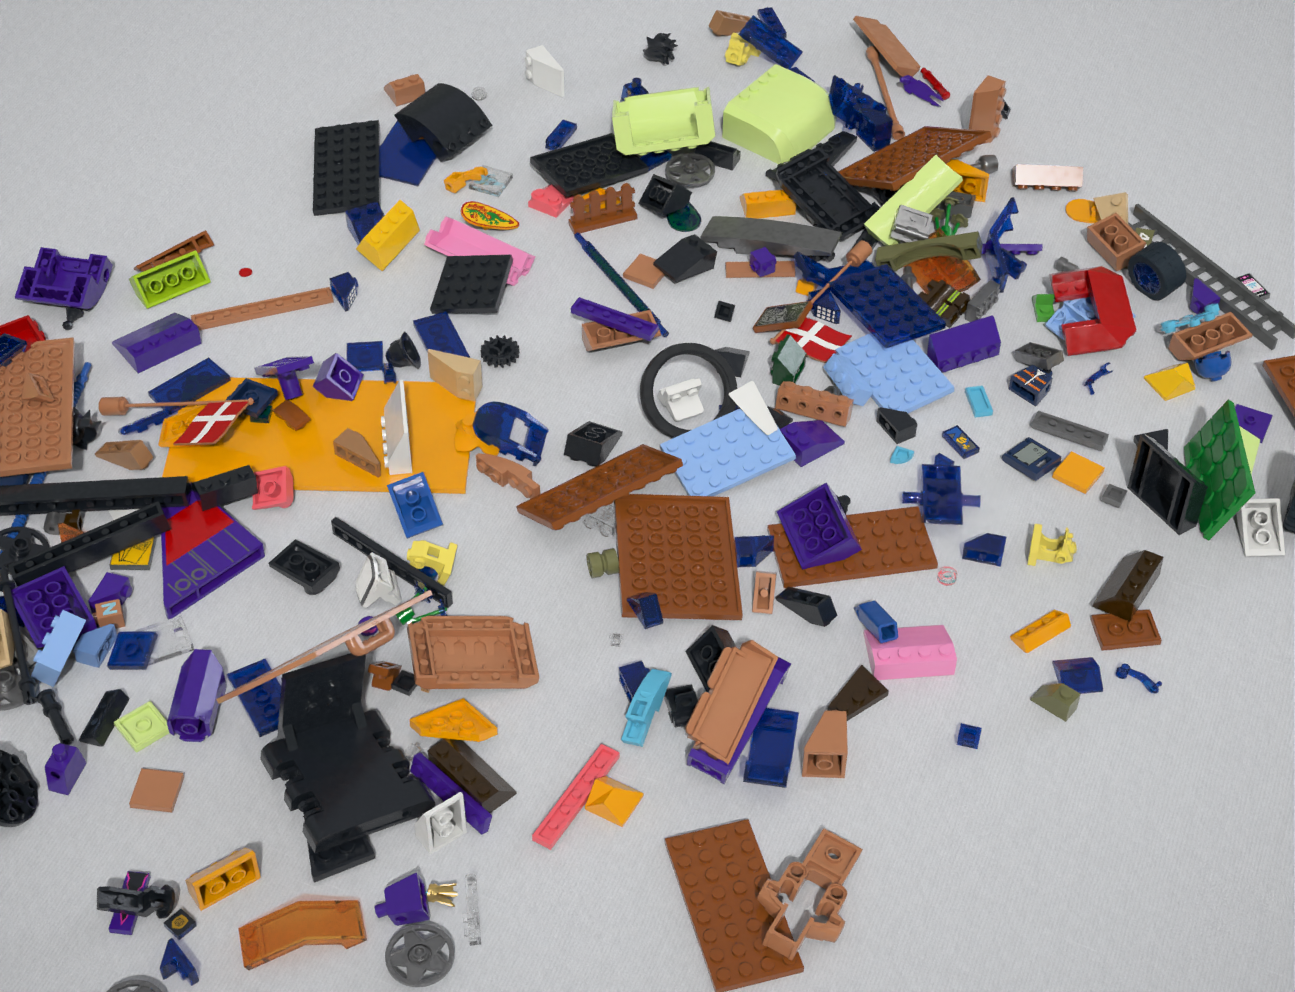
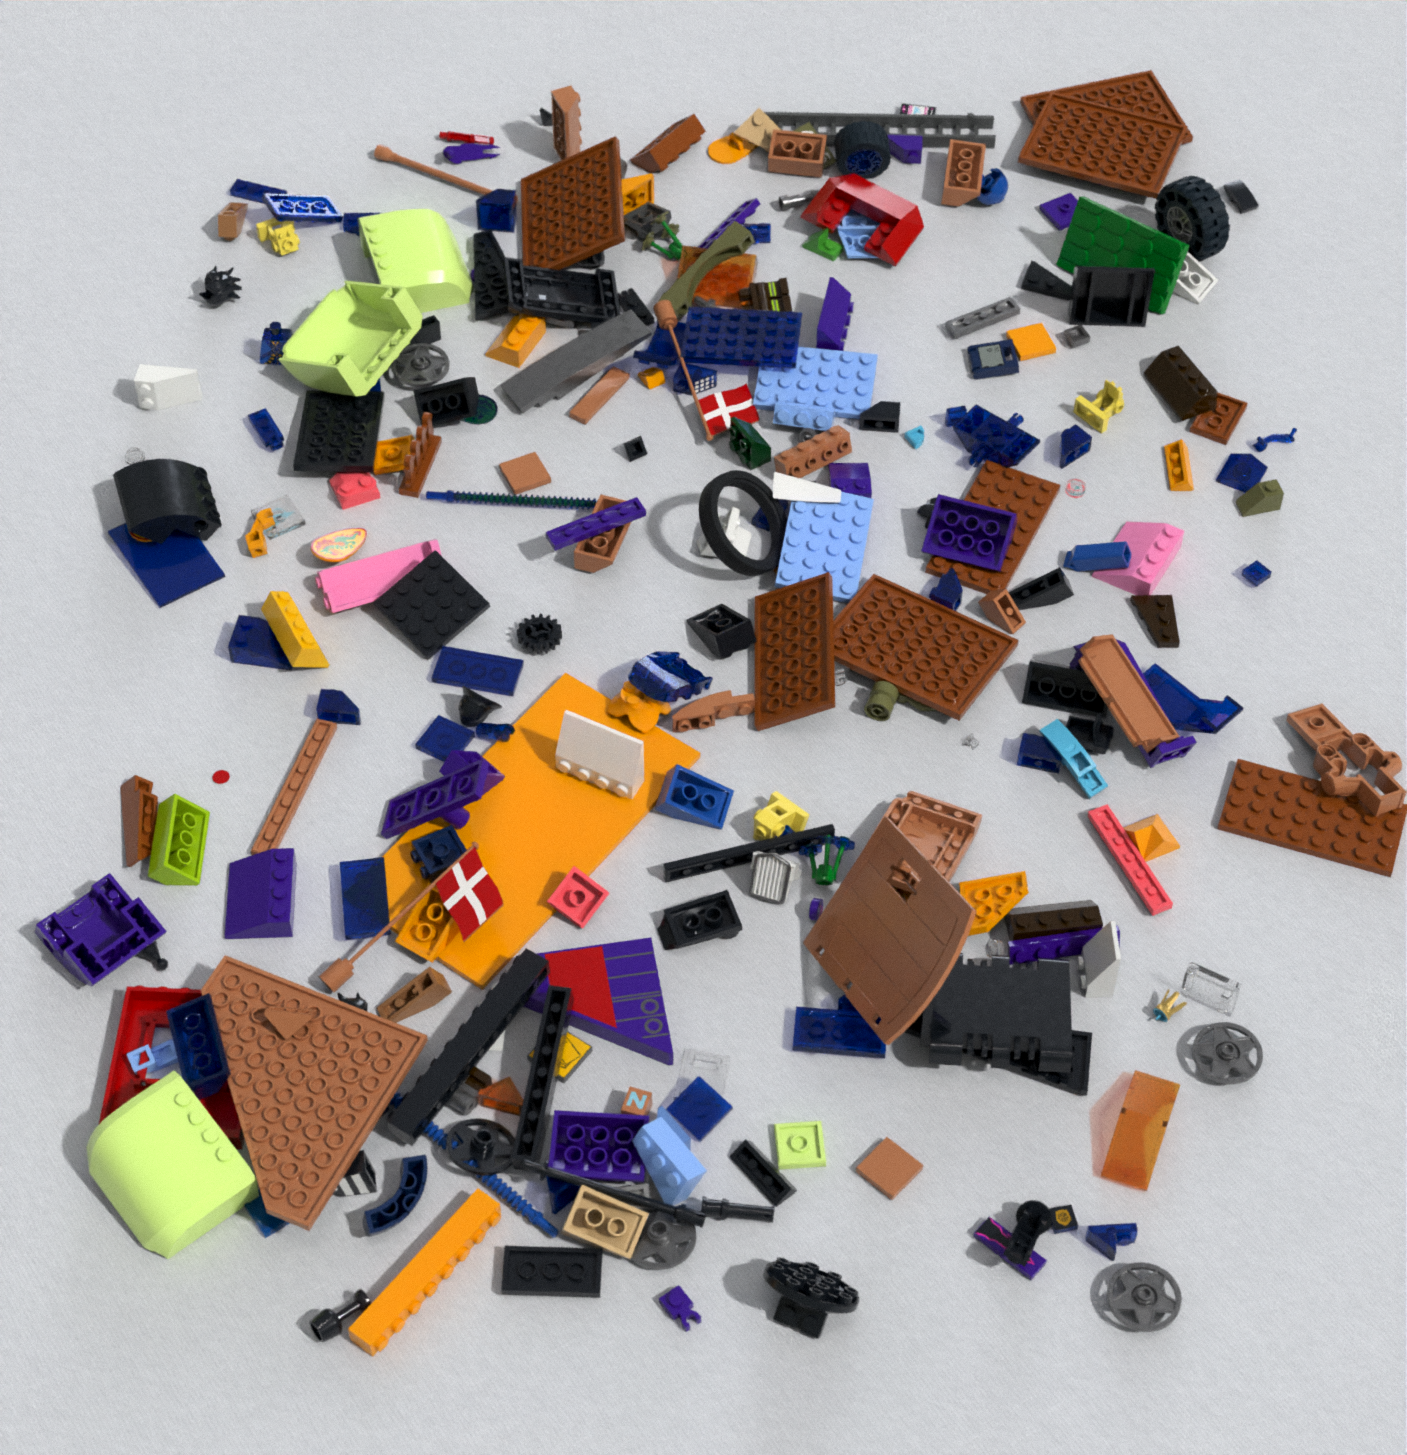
camera: 55 degrees left, 5 degrees up
(64, 768) = (813, 1224): dark purple torso -> none
(111, 588) = (604, 1090): dark purple slope -> none
(142, 424) = (382, 960): clear blue hinge -> none
(195, 697) = (810, 1078): dark purple brick -> none
(223, 878) = (1039, 1156): light orange slope -> none
(225, 487) = (552, 926): black slope -> none
(292, 415) = (487, 832): dark orange slope -> none
(346, 167) = (143, 616): black plate -> none
(354, 449) = (587, 805): medium nougat slope -> none
(405, 89) = (65, 508): nougat slope -> none
(405, 901) = (1163, 1035): dark purple torso -> none
(456, 373) = (557, 677): tan slope -> none
(646, 609) = (971, 694): clear blue slope -> none
(687, 258) = (545, 434): black slope -> none
(736, 358) = (697, 477): black slope -> none
(762, 262) = (603, 385): dark purple brick -> none
(782, 317) = (688, 412): tile -> none
(827, 747) = (1210, 661): nougat slope -> none
(847, 99) = (454, 204): clear blue slope -> none
(888, 46) = (388, 135): nougat slope -> none
(910, 225) = (668, 261): flat silver plate -> none
(922, 193) = (642, 242): yellowish green arch -> none
(960, 442) = (934, 391): tile -> none
(978, 401) = (896, 352): medium azure tile -> none
(982, 301) = (785, 269): flat silver piece -> none
(992, 247) = (767, 242): clear blue windscreen -> none
(1031, 384) = (912, 307): dark blue torso -> none
(1039, 355) = (887, 281): flat silver piece -> none
(1091, 380) = (937, 271): clear blue piece -> none
(1171, 381) = (978, 224): yellow slope -> none
(1209, 314) = (929, 183): medium azure plant -> none

